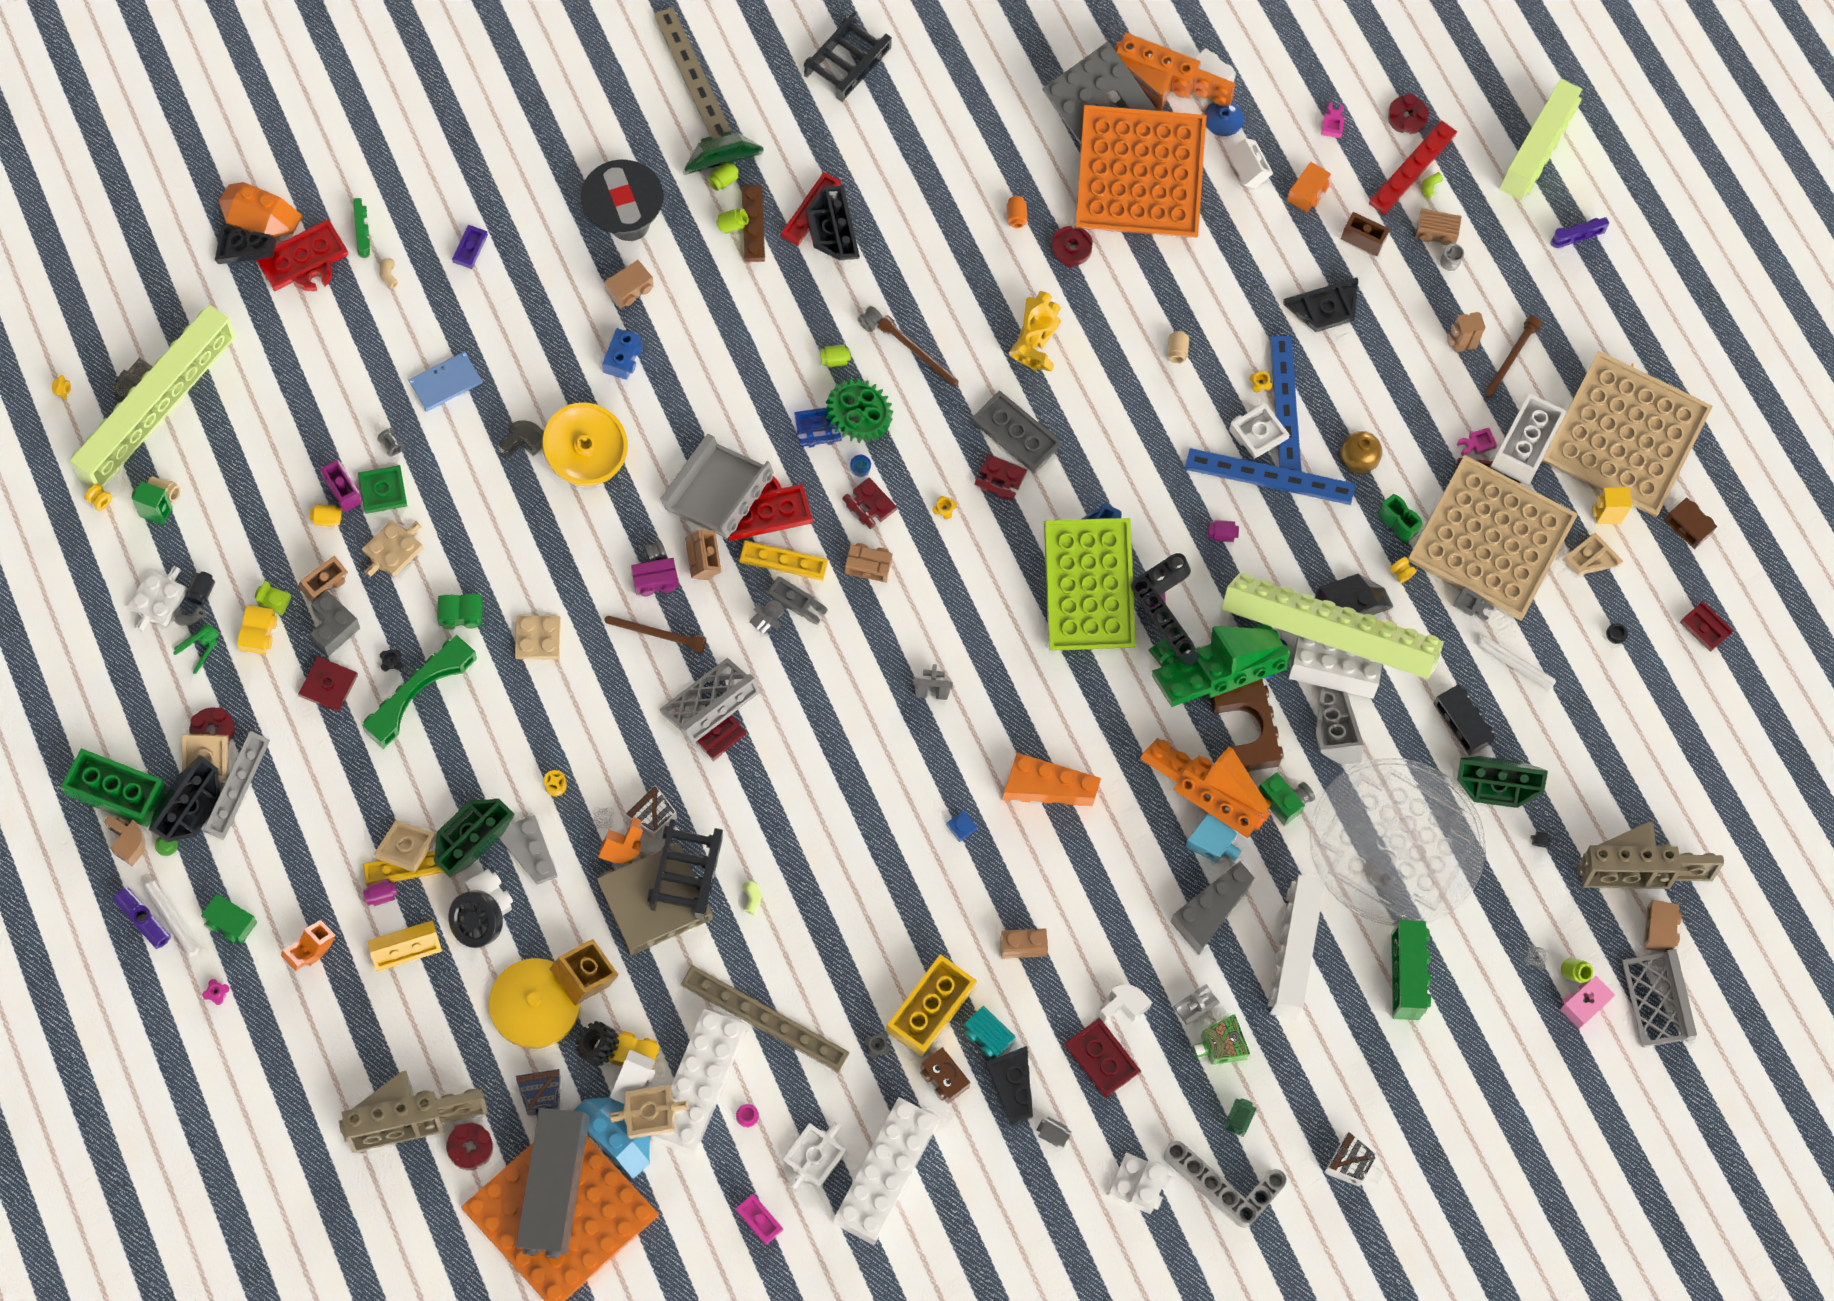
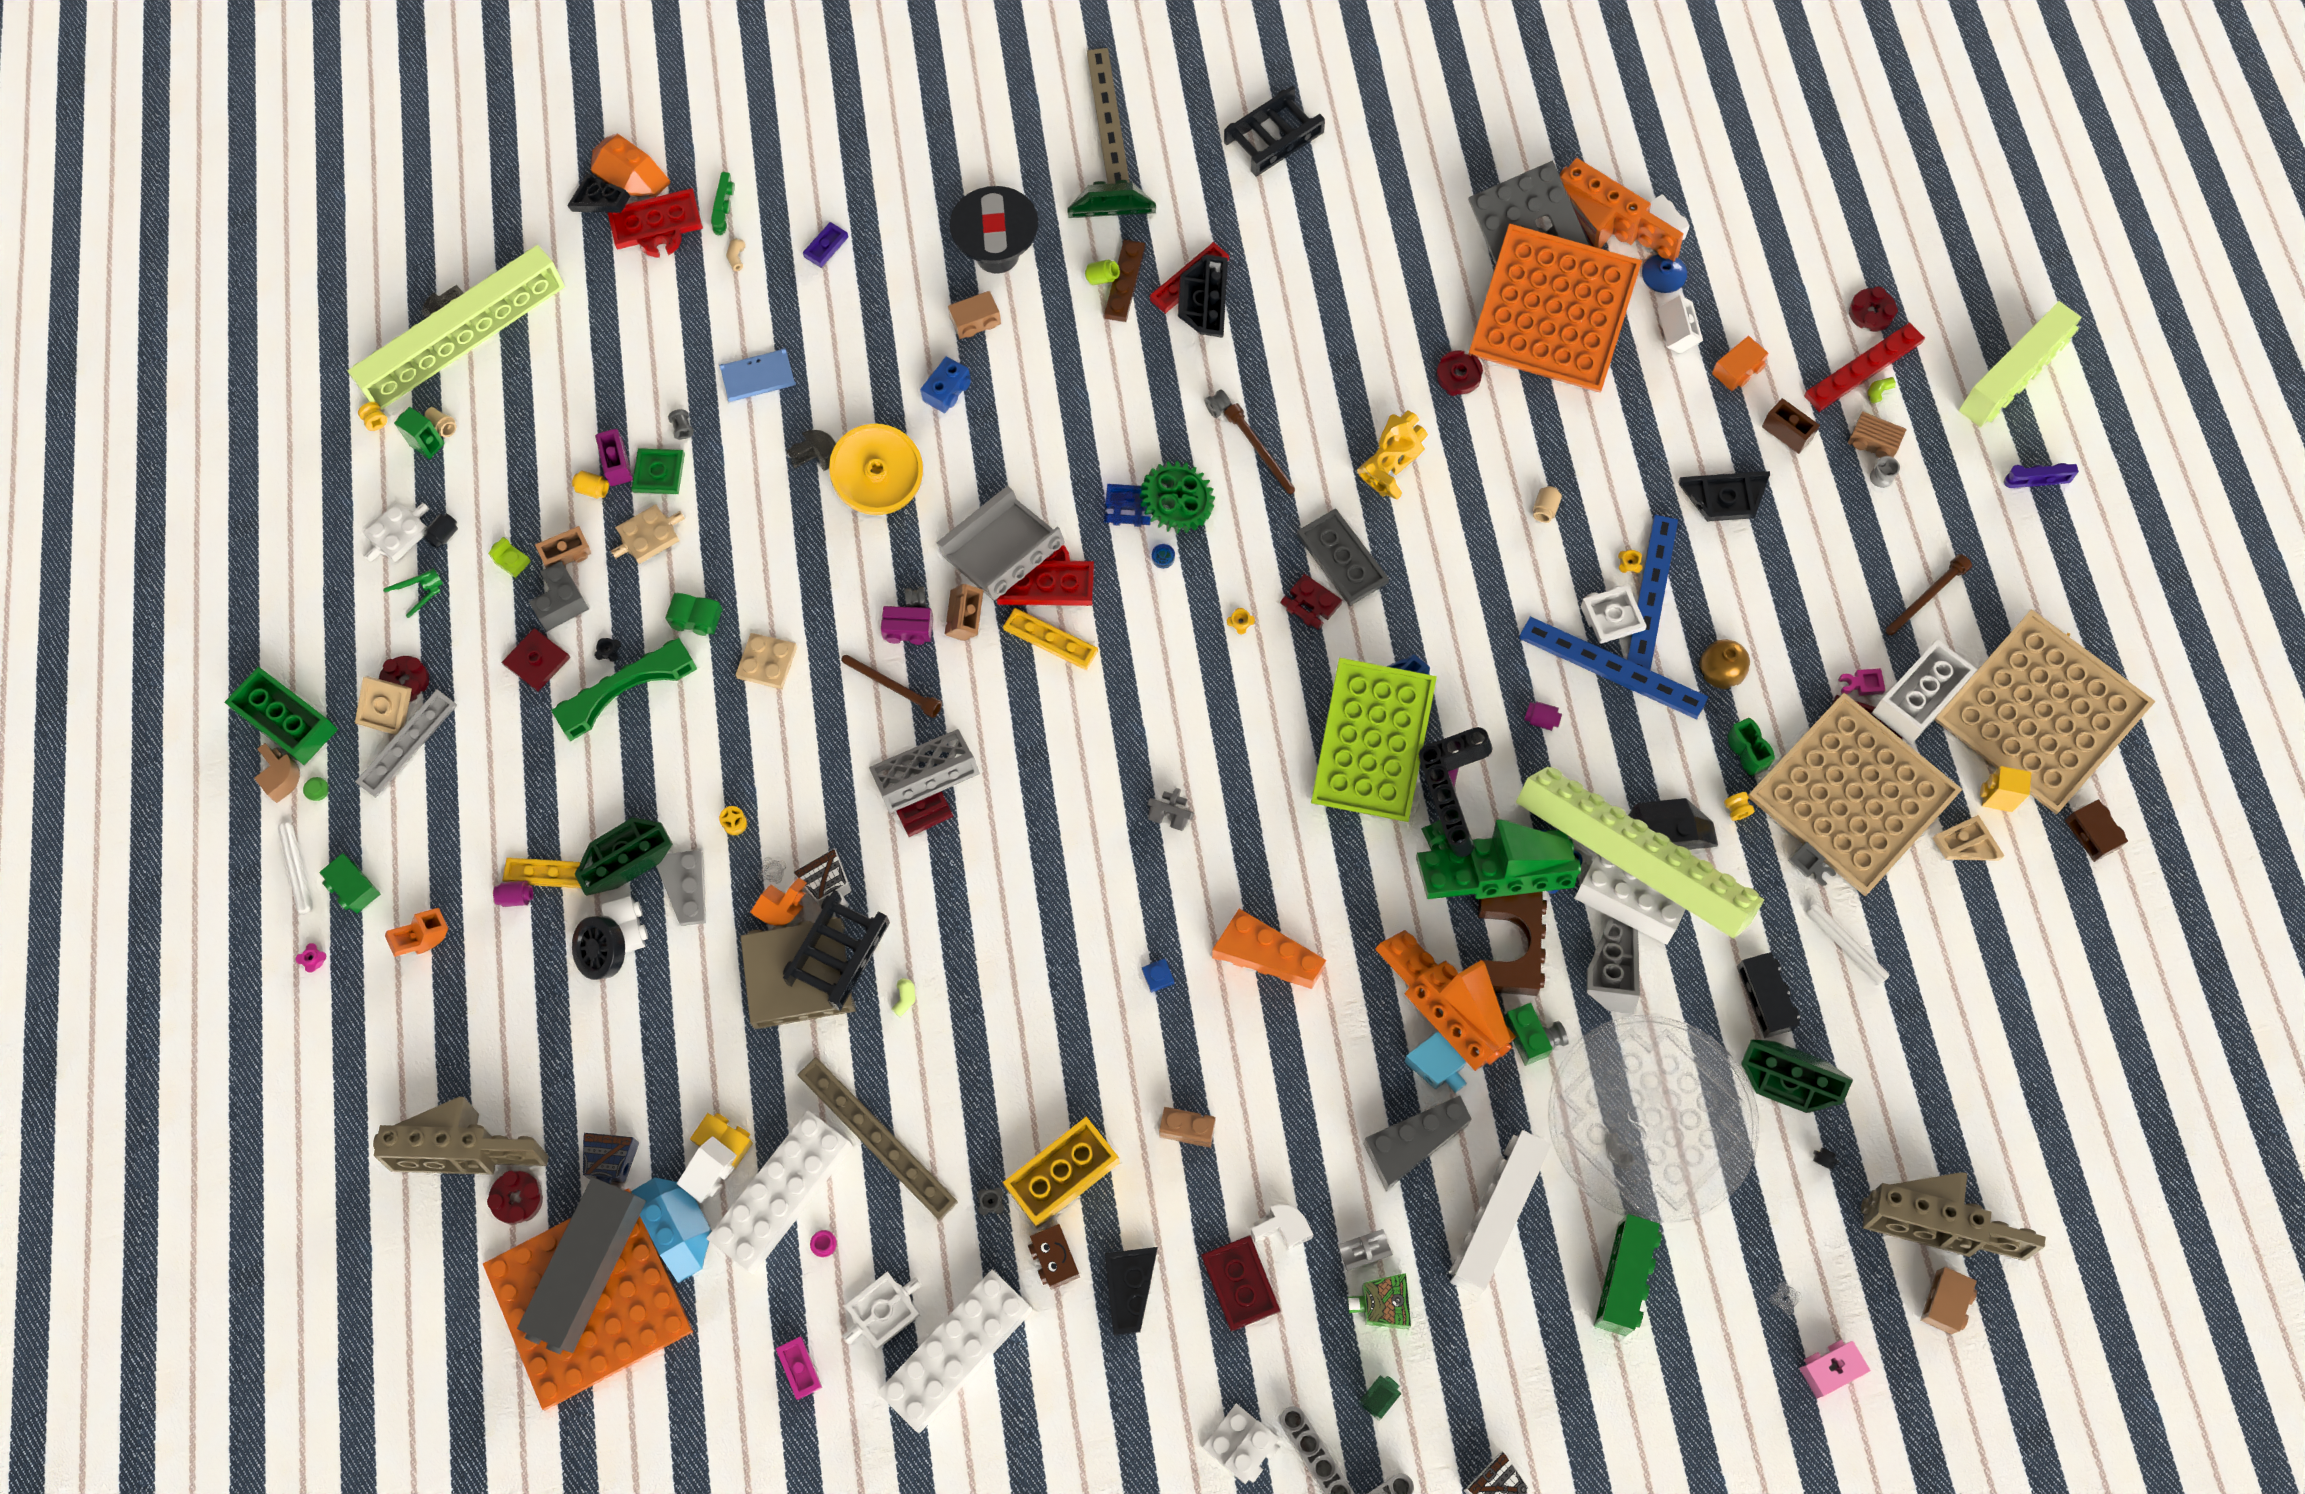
camera: 25 degrees right, 0 degrees up
(61, 387) = (375, 299): yellow plate -> none
(150, 927) = (258, 847): dark purple piece -> none
(187, 802) = (348, 750): black wedge -> none
(189, 620) = (413, 557): dark grey arm -> none
(256, 630) = (481, 586): yellow brick -> none
(404, 945) = (519, 957): yellow panel -> none
(405, 845) = (553, 849): tan plate -> none
(531, 1005) = (635, 1056): yellow dish -> none
(583, 971) = (693, 1035): pearl gold brick -> none
(604, 1049) = (683, 1119): black tyre -> none
(649, 1111) = (709, 1213): tan plate -> none
(723, 176) = (1107, 226): lime brick -> none
(766, 617) = (1008, 695): flat silver hips -> none
(795, 599) = (1049, 683): dark grey hinge -> none
(835, 356) = (1169, 434): lime brick -> none
(868, 562) = (1140, 661): medium nougat brick -> none
(874, 499) = (1167, 596): dark red plate -> none
(989, 1033) = (1119, 1220): teal brick -> none
(1016, 212) = (1408, 325): orange brick -> none
(1053, 1132) = (1159, 1356): dark grey brick -> none
(1333, 122) = (1785, 300): dark pink plate -> none
(1466, 332) = (1880, 556): medium nougat brick -> none
(1576, 970) = (1830, 1327): lime brick -> none
(1616, 633) = (1976, 937): black plate -> none
(1679, 998) = (1950, 1389): light grey fence -> none
(1706, 626) = (2088, 955): dark red plate -> none

